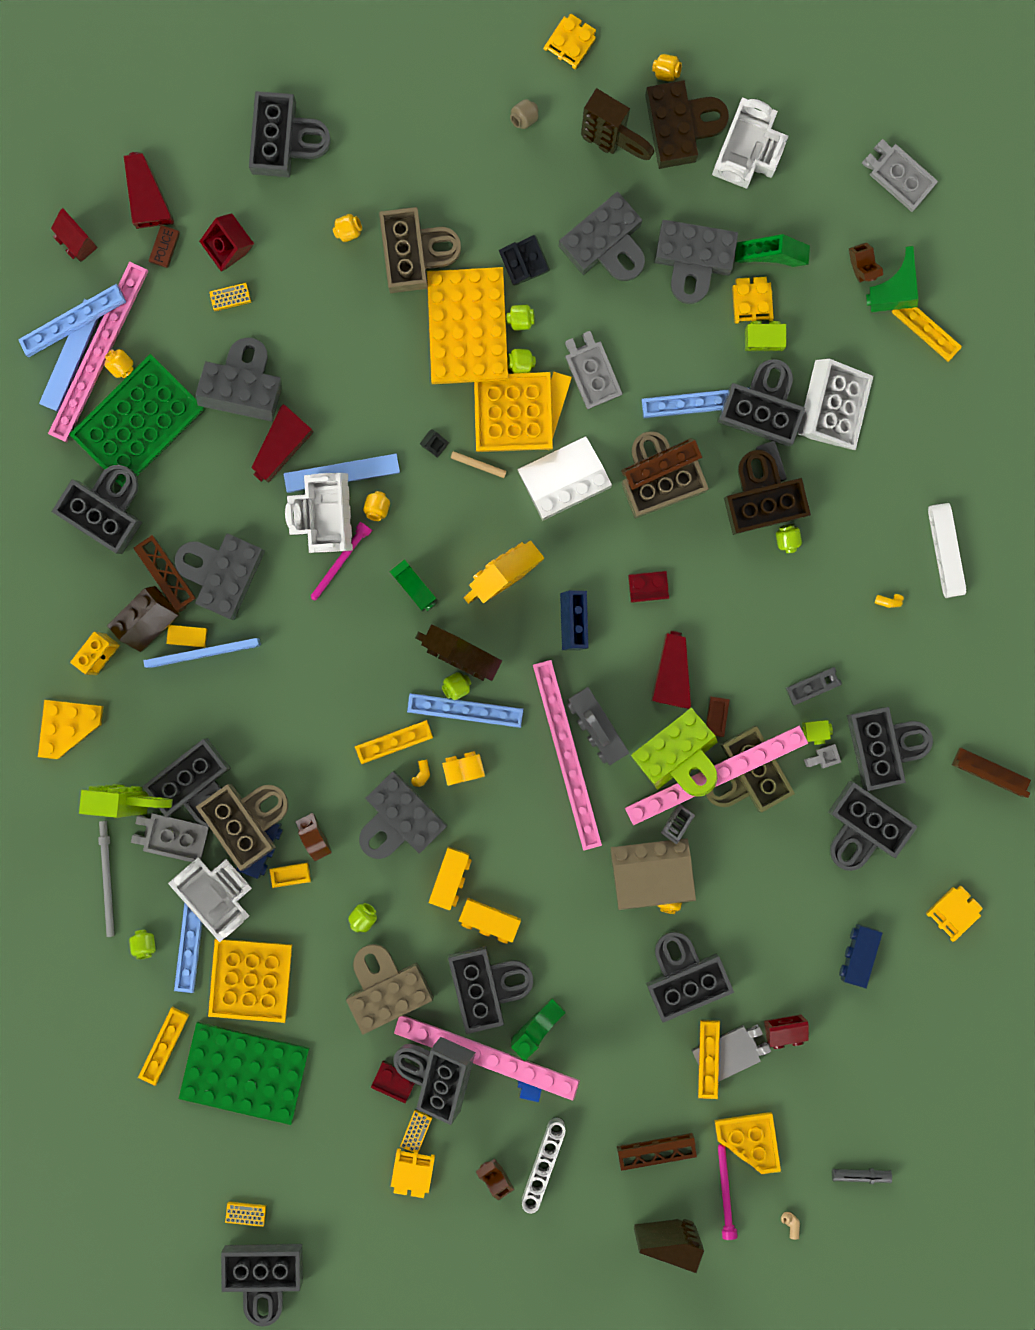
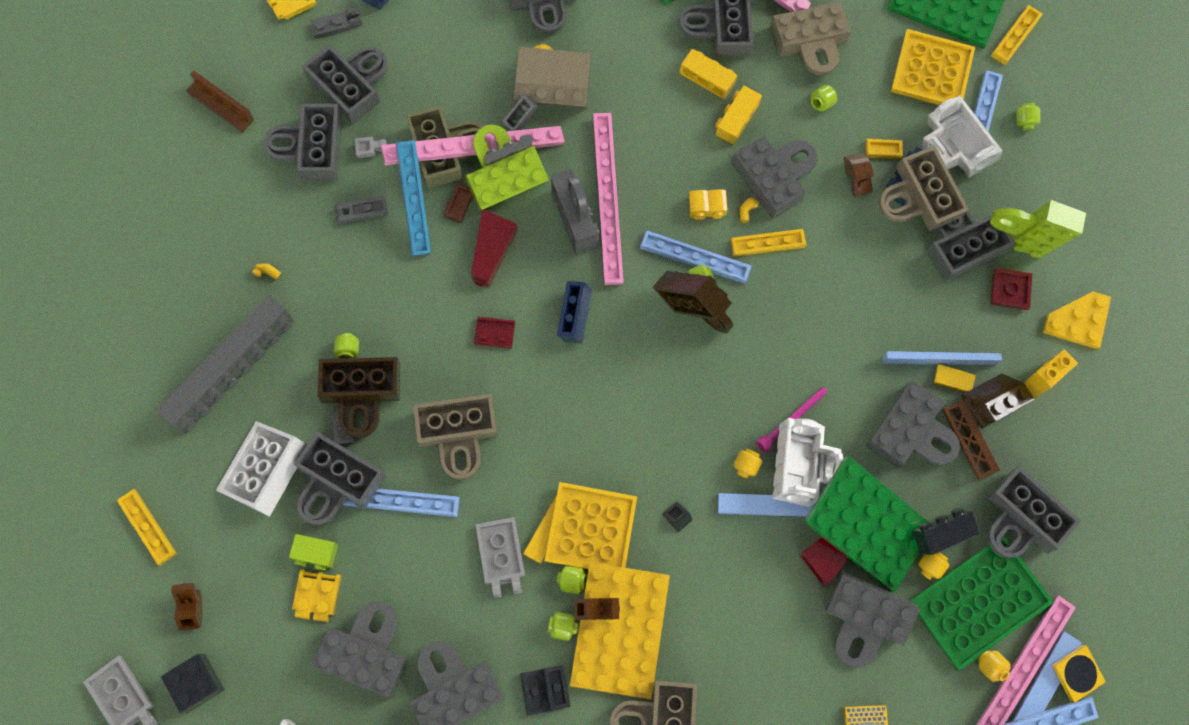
camera: 170 degrees left, 15 degrees down
(40, 374) = (1078, 673): none -> tile
(104, 840) = (1055, 165): light grey bar -> none
(140, 743) = (1011, 289): none -> dark red plate
(171, 837) = (985, 197): light grey tile -> none
(178, 476) = (945, 531): none -> black brick
(185, 446) = (934, 565): none -> yellow head
(252, 467) = (867, 523): none -> green plate
(413, 586) = (724, 376): green arch -> none
(478, 464) = (637, 485): tan bar -> none
(492, 333) = (596, 609): none -> reddish brown brick
(504, 572) = (636, 357): yellow brick -> none
(564, 478) = (553, 451): white slope -> none
(662, 463) = (453, 440): reddish brown fence -> none
(678, 770) = (509, 149): none -> dark grey hinge
(763, 701) = (413, 197): none -> dark azure tile
(773, 249) = (280, 639): green arch -> none
(817, 731) = (369, 169): lime brick -> none
(840, 199) = (192, 683): none -> black brick
(897, 493) = (226, 365): none -> dark grey brick
(898, 291) = (158, 569): green arch -> none
(900, 894) = (336, 23): none -> dark grey hinge
(947, 550) = (196, 305): white beam -> none

